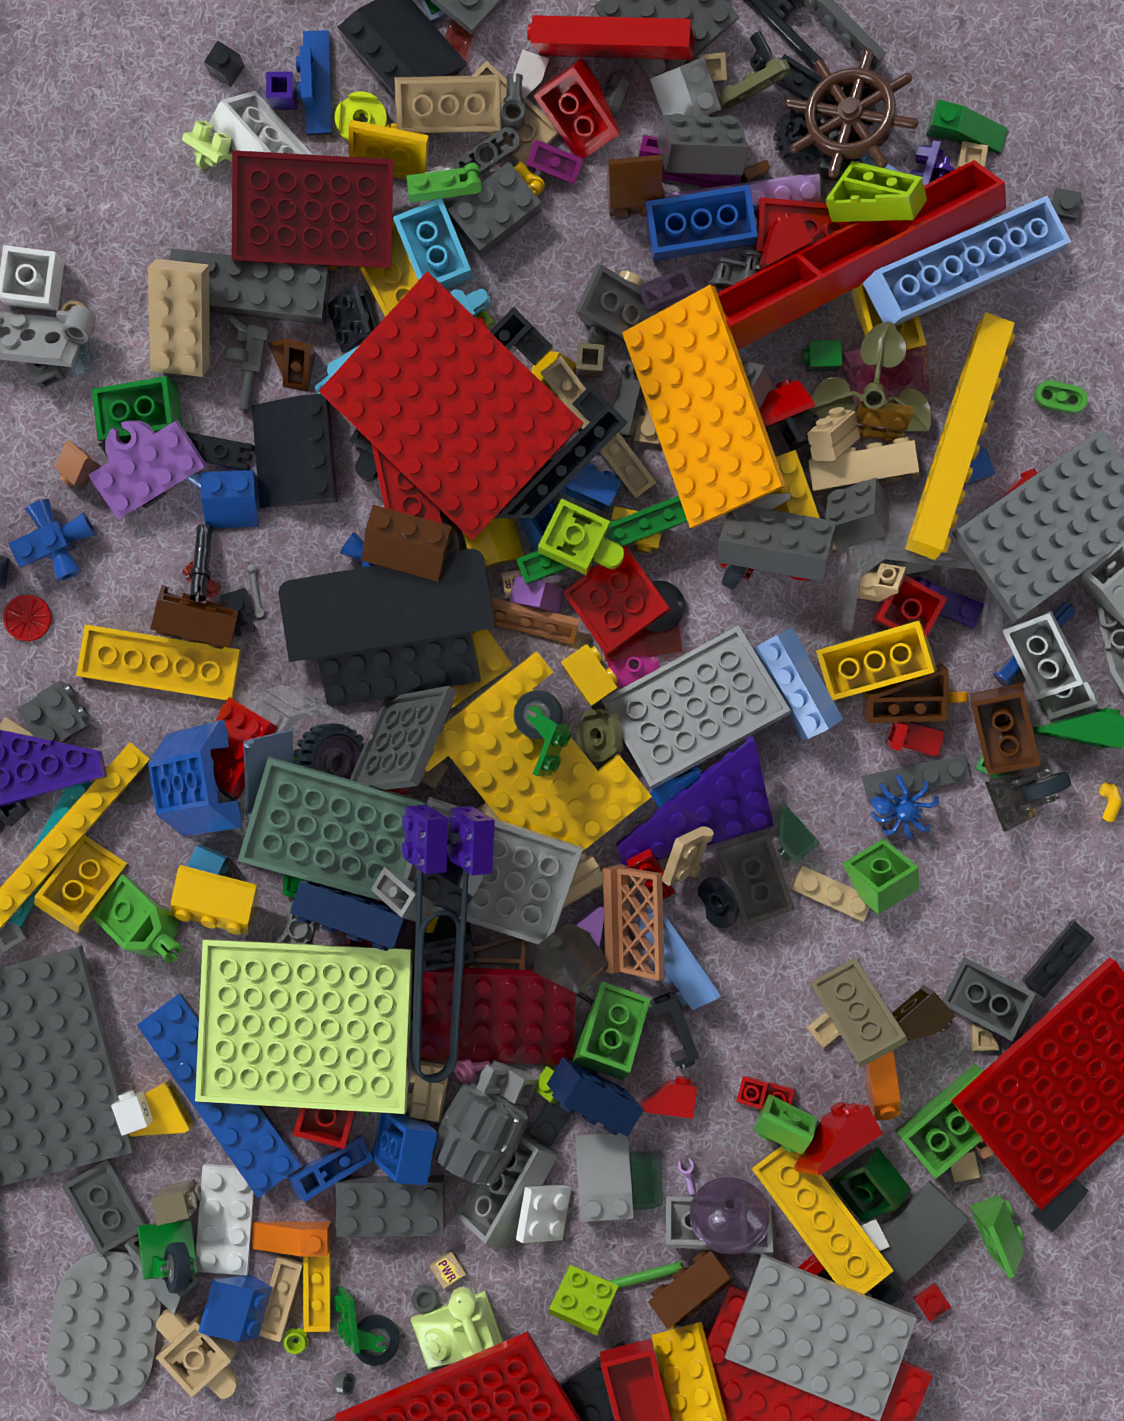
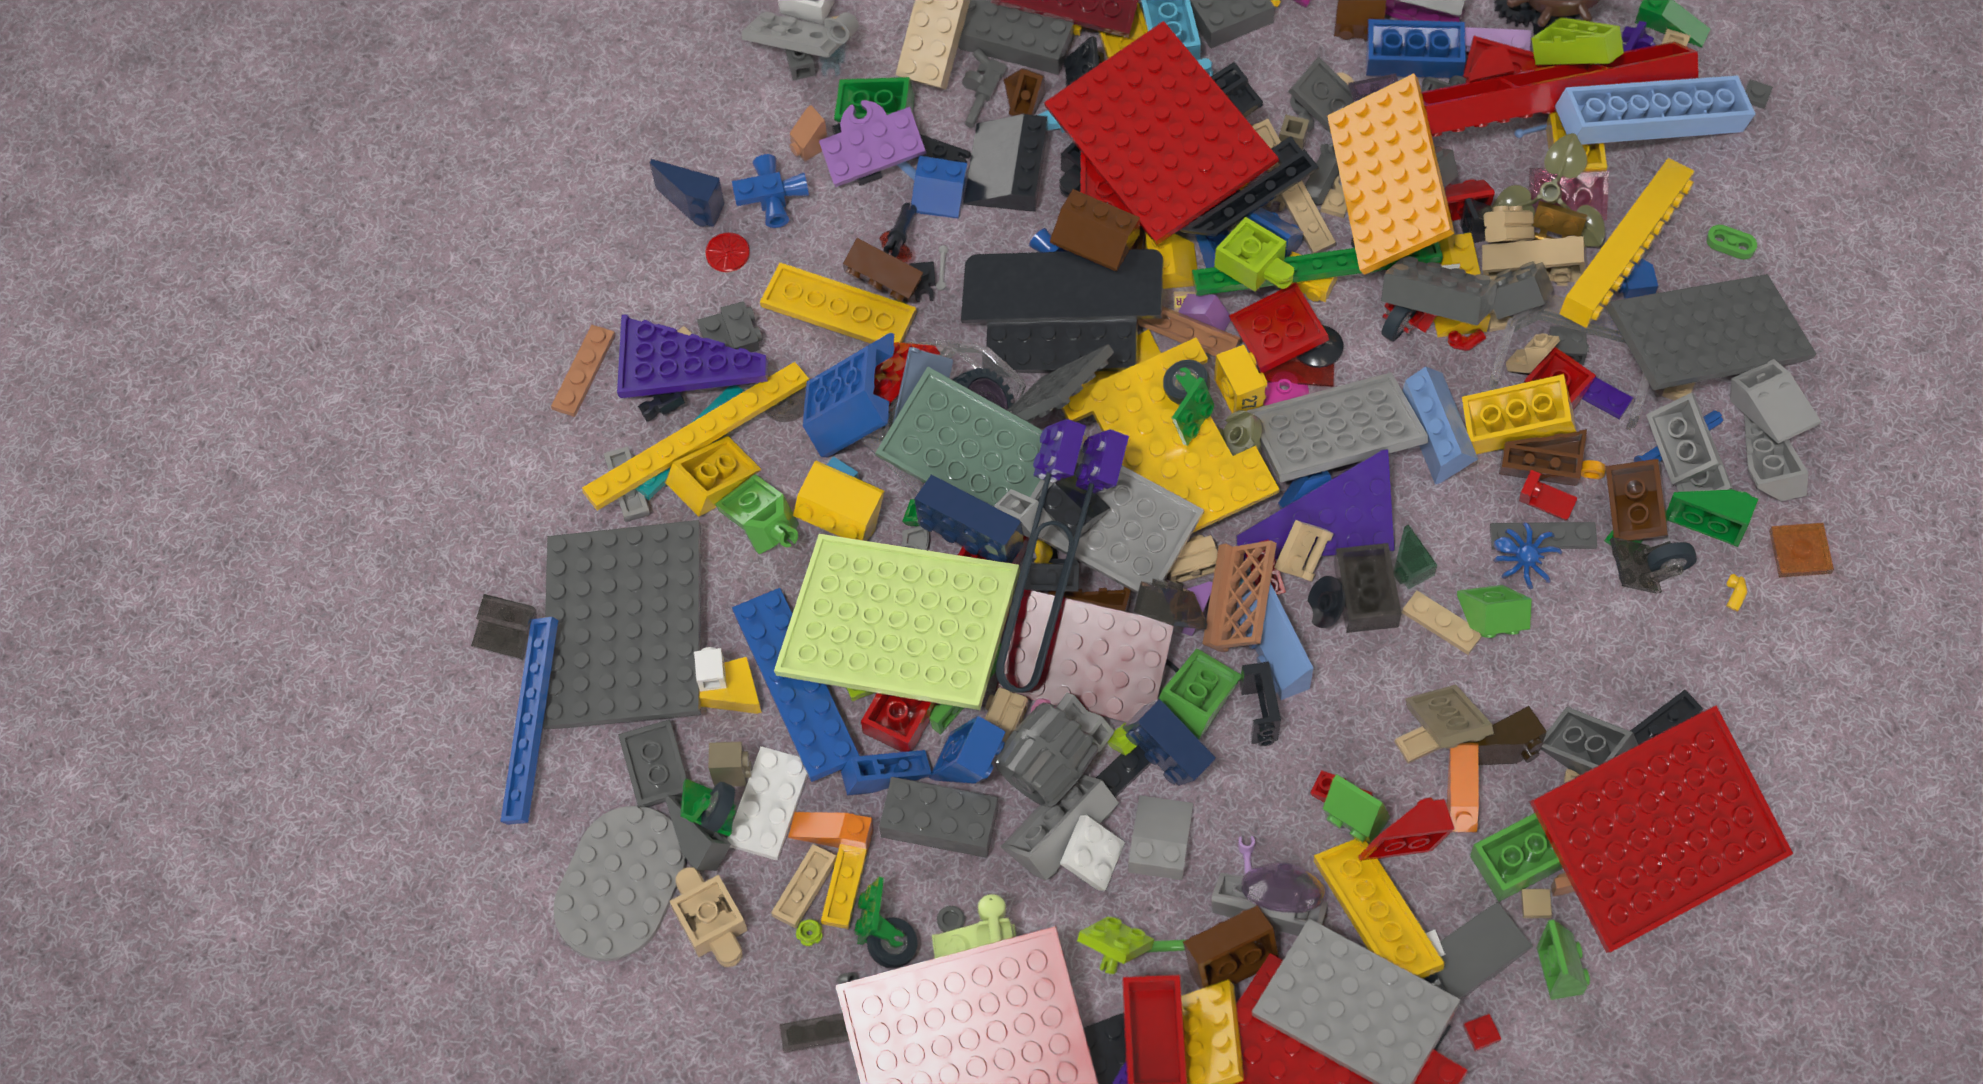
camera: 20 degrees right, 25 degrees down
(235, 1308) = (760, 875): blue slope -> none
(447, 1269) = (976, 891): tile -> none
(646, 1179) = (1204, 847): clear green brick -> none
(672, 1098) = (1244, 774): red slope -> none
(755, 170) = (1474, 19): reddish brown tile -> none
(822, 355) = (1509, 169): green brick -> none
(871, 1185) = (1436, 896): dark green slope -> none
(1061, 1206) = (1631, 957): black slope -> none

